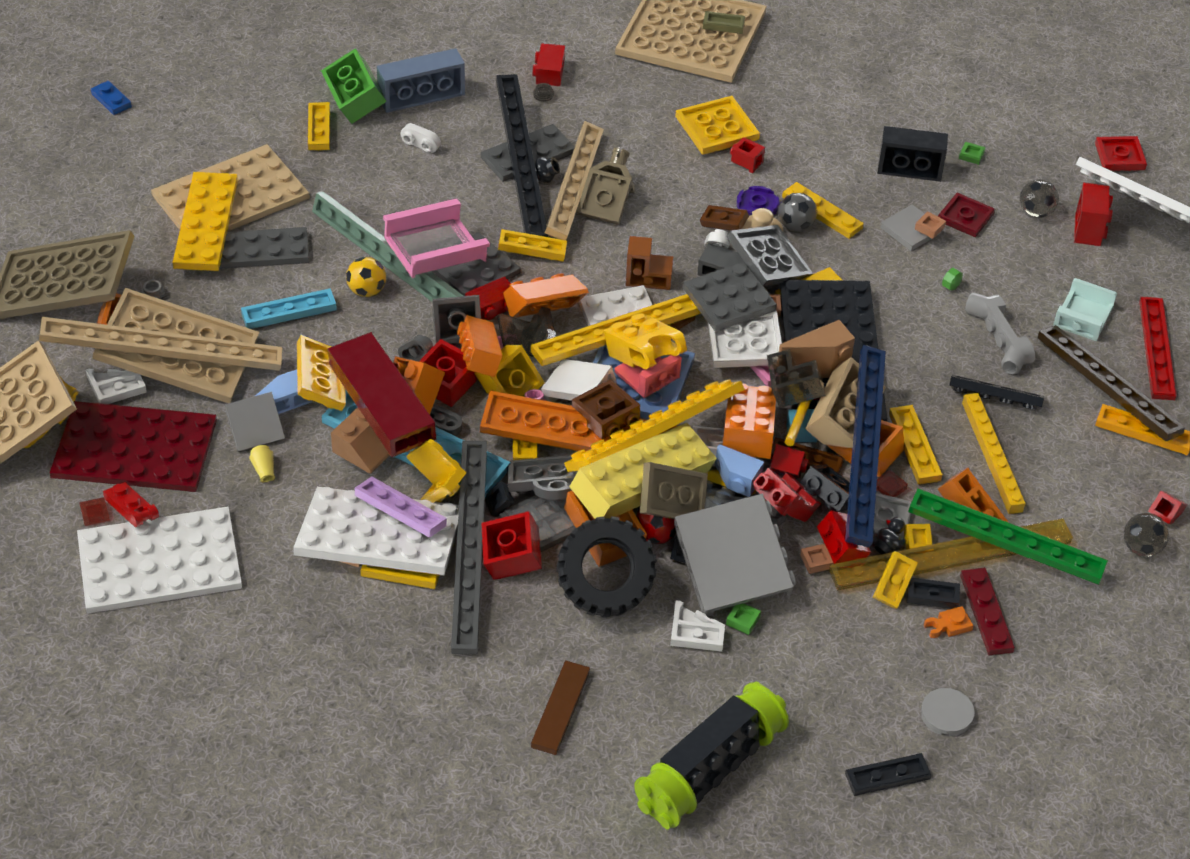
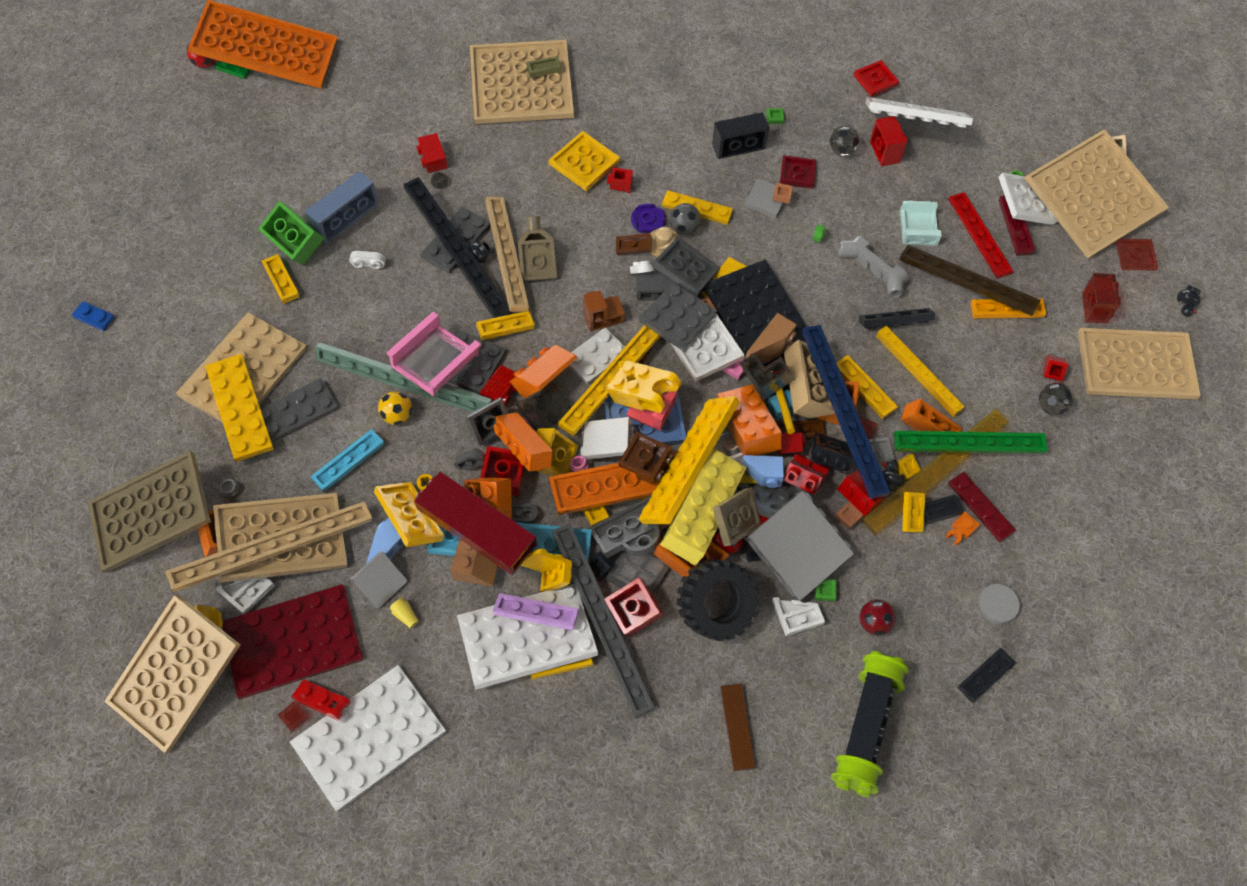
camera: 25 degrees left, 15 degrees up
(787, 662) = (877, 617): none -> dark red piece

